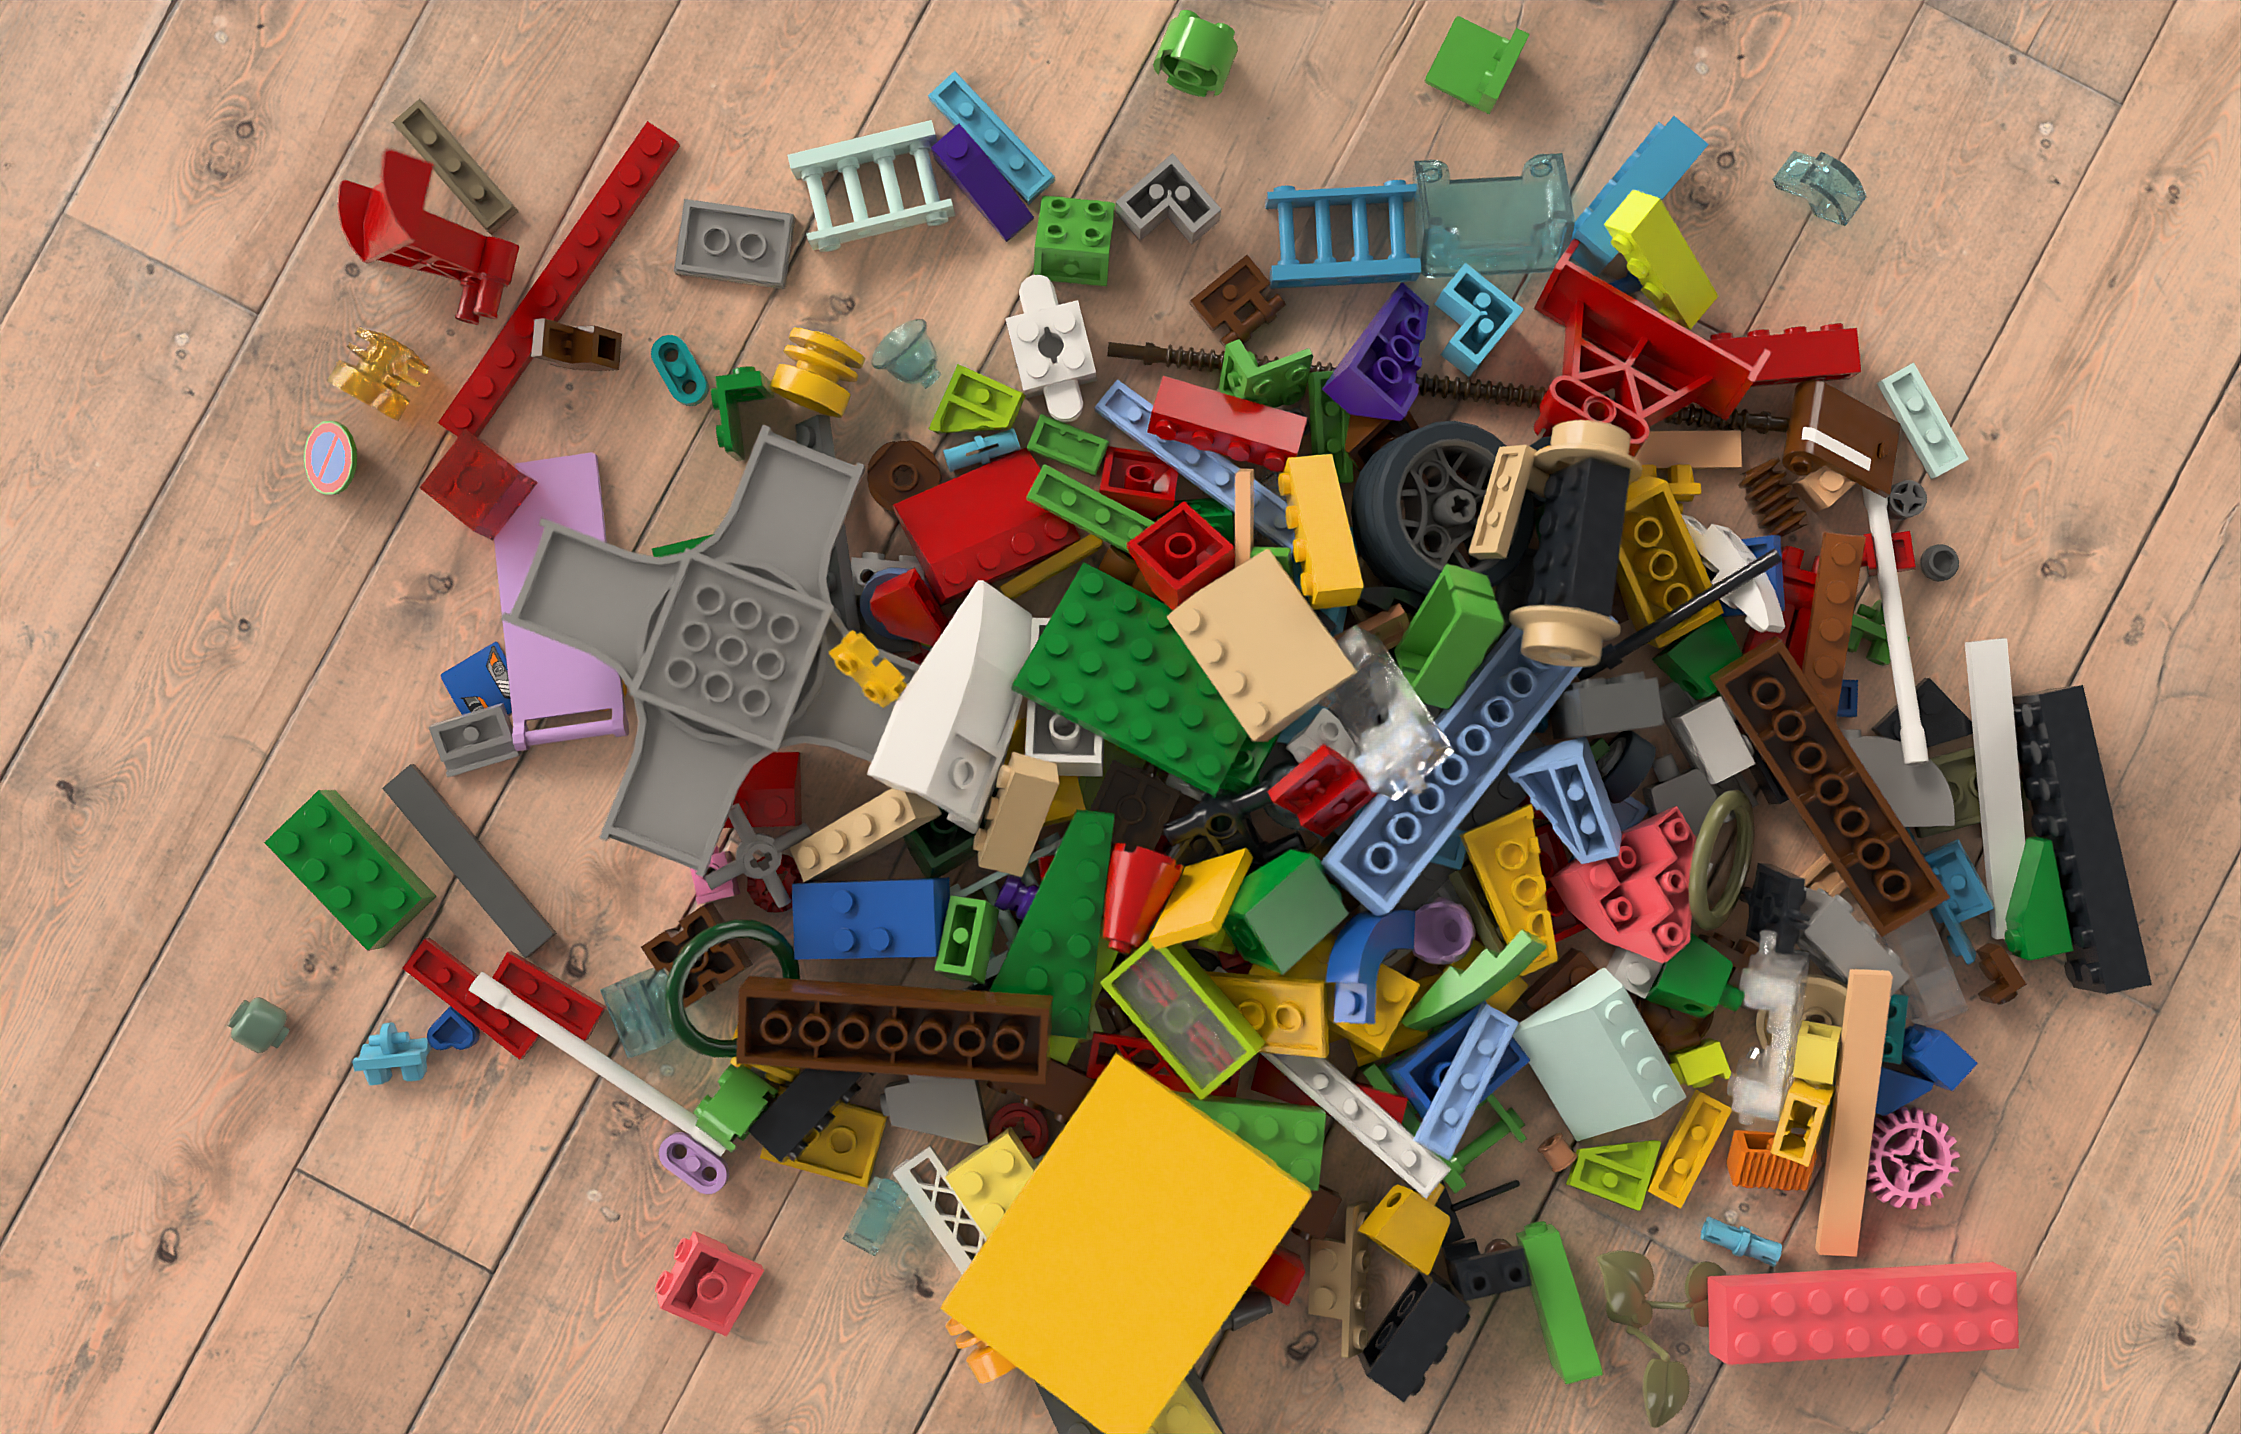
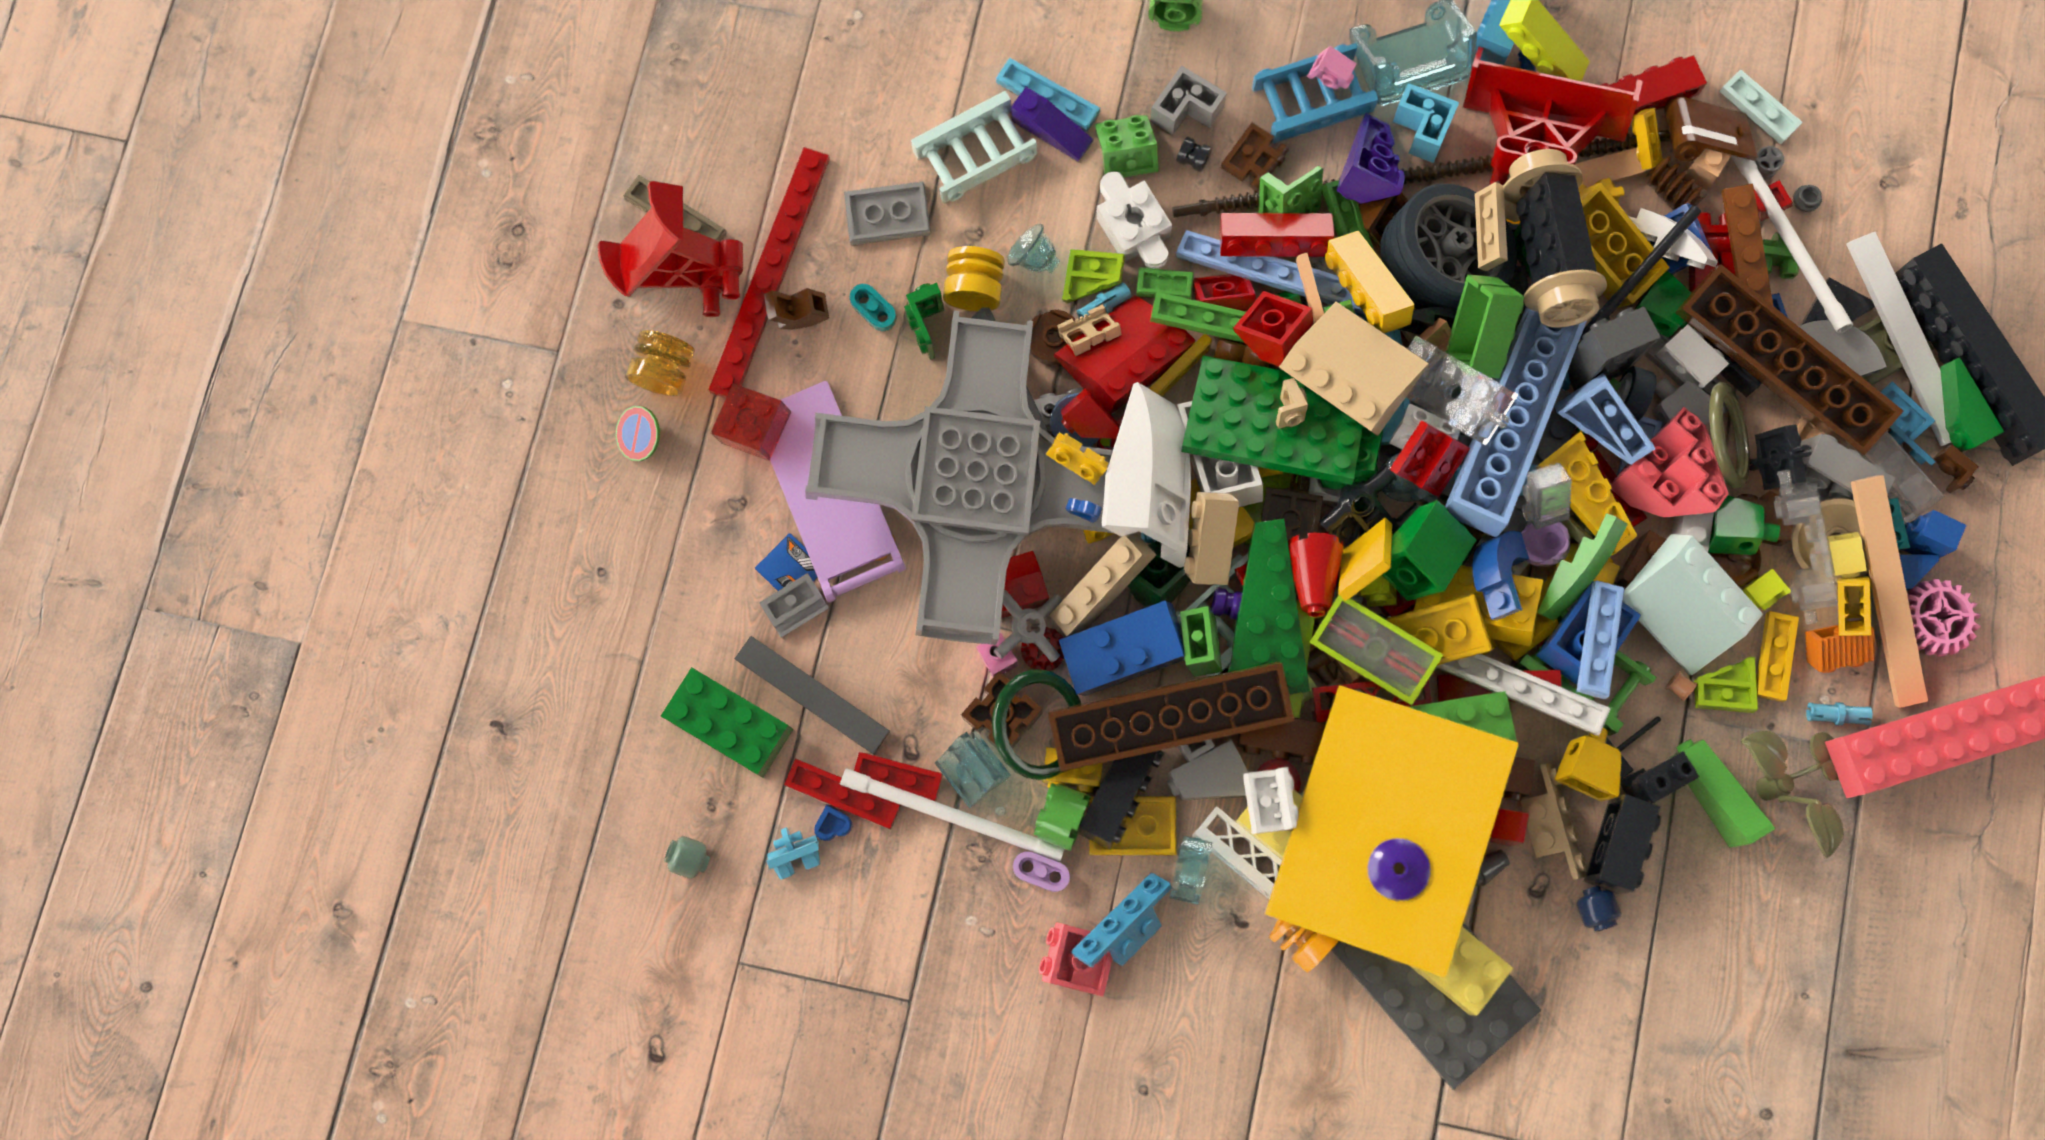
camera: 10 degrees left, 10 degrees down
(776, 1261) = (1126, 925): none -> dark azure bracket
(855, 740) = (1084, 509): none -> blue tile
(945, 478) = (1085, 325): none -> tan piece
(987, 1172) = (1270, 801): none -> white bracket
(1127, 1289) = (1393, 885): none -> dark purple dish
(1158, 277) = (1194, 154): none -> black wheel
(1174, 666) = (1294, 404): none -> tan bracket
(1361, 1400) = (1598, 909): none -> dark blue head
(1372, 215) = (1333, 69): none -> bright pink brick
(1456, 883) = (1547, 496): none -> clear brick
(1756, 427) = (1648, 140): none -> yellow plate

